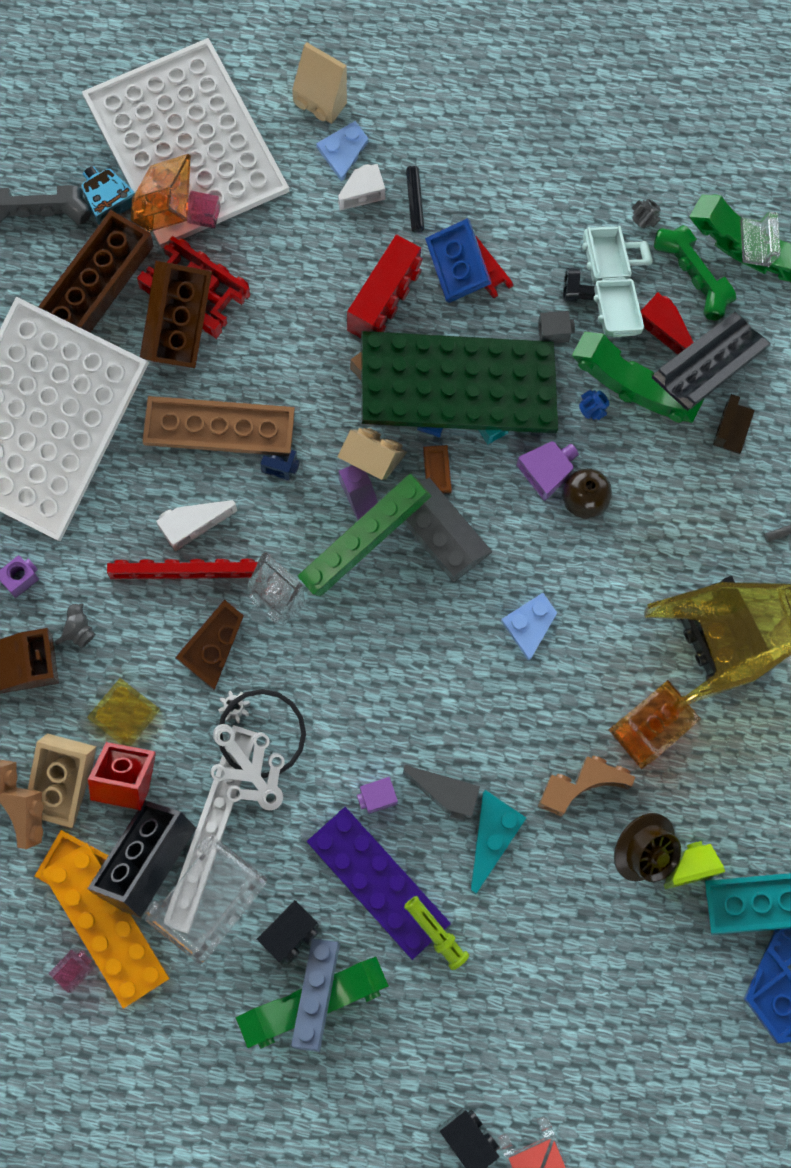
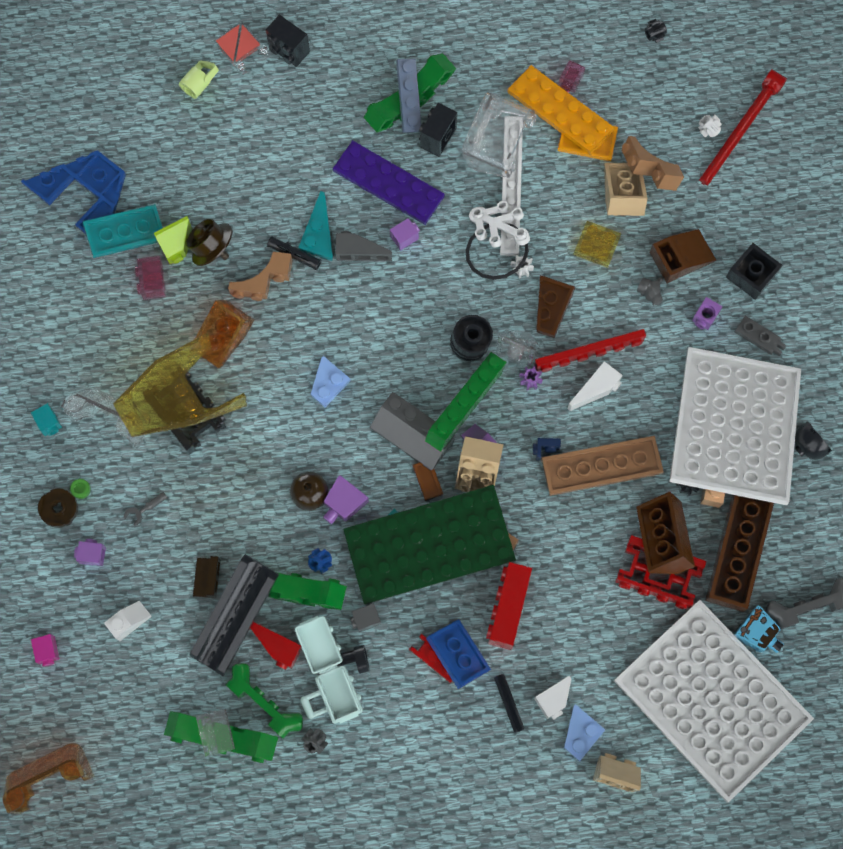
camera: 170 degrees right, 0 degrees up
(121, 776) = (583, 200): red slope -> none
(142, 858) = (550, 150): black slope -> none
(163, 195) = (712, 635): clear orange slope -> none
(203, 209) = (676, 633): clear pink brick -> none
(275, 548) = (528, 382): none -> medium lavender gear
(319, 618) = (471, 327): none -> black wheel
(443, 941) = (334, 153): lime pin -> none
(539, 816) = (275, 244): none -> black pin
(617, 1115) = (196, 80): none -> yellowish green piece
(735, 827) = (151, 278): none -> clear pink brick

